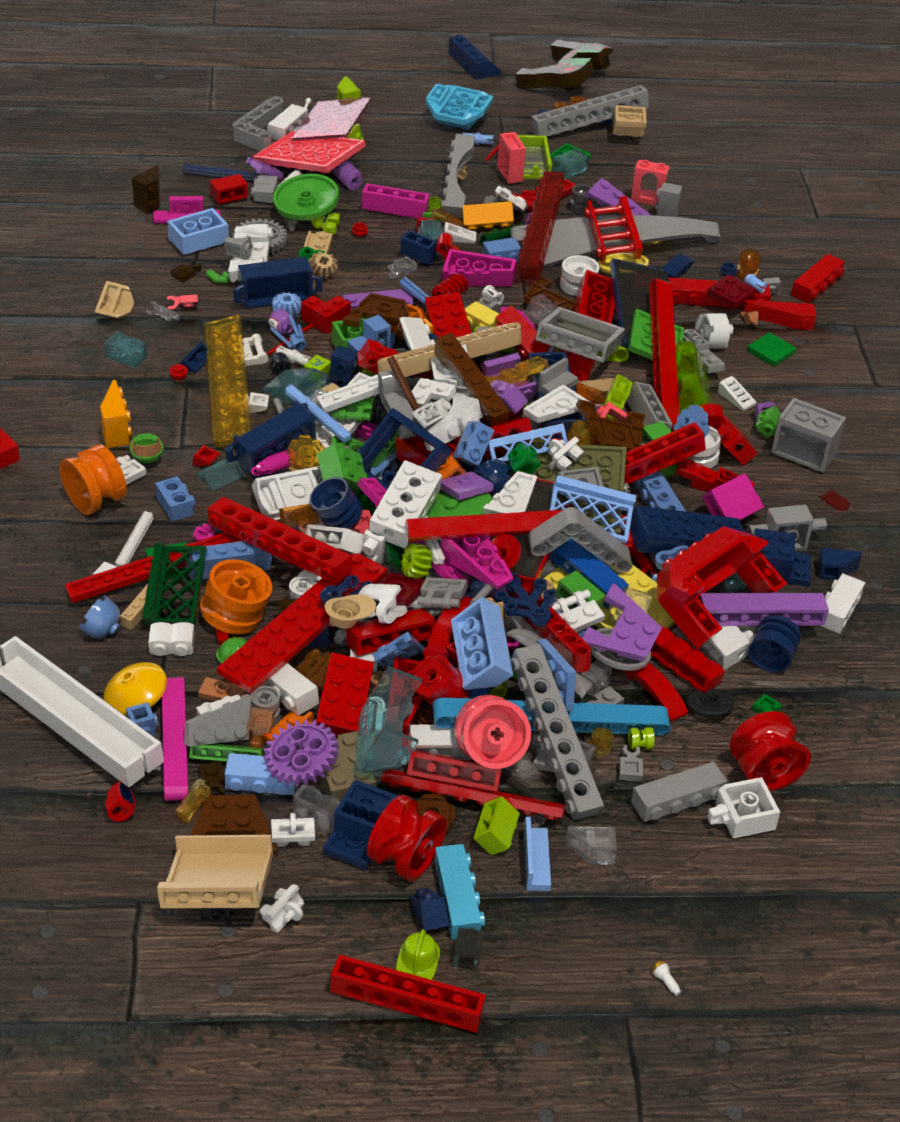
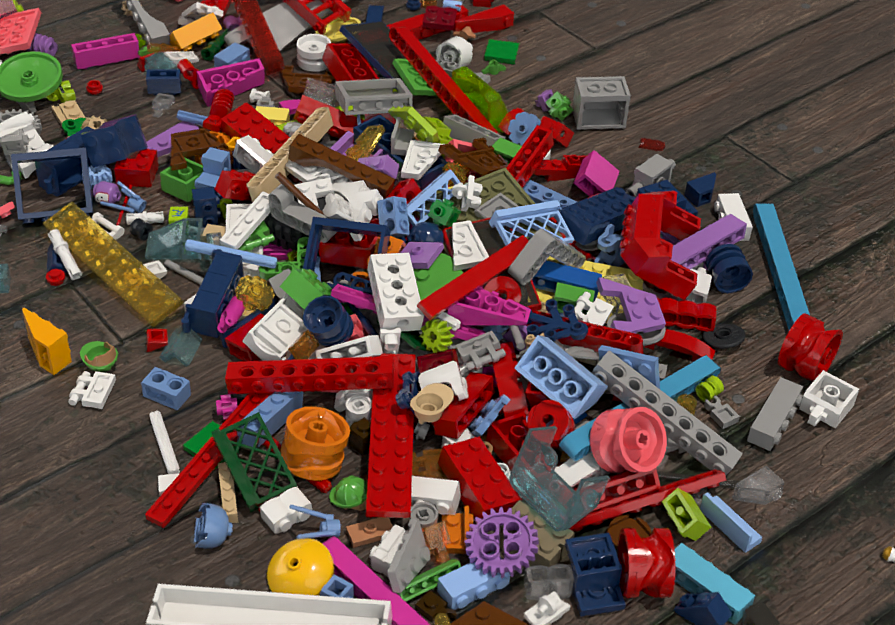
camera: 35 degrees left, 0 degrees up
(92, 478) = (87, 406): orange piece -> none
(188, 670) = (328, 528): none -> medium blue plant
(199, 350) = (61, 247): none -> white pin
(265, 299) = (46, 156): none -> dark blue window
(314, 277) = (114, 140): none -> dark blue bracket
(418, 299) = (213, 122): none -> red slope
(578, 380) = (415, 121): none -> lime wing
(731, 389) = (513, 96): white slope -> none
(746, 361) = (493, 68): none -> bright green piece
(766, 704) = (758, 318): green tile -> none
(841, 671) = (780, 263): none -> dark azure beam

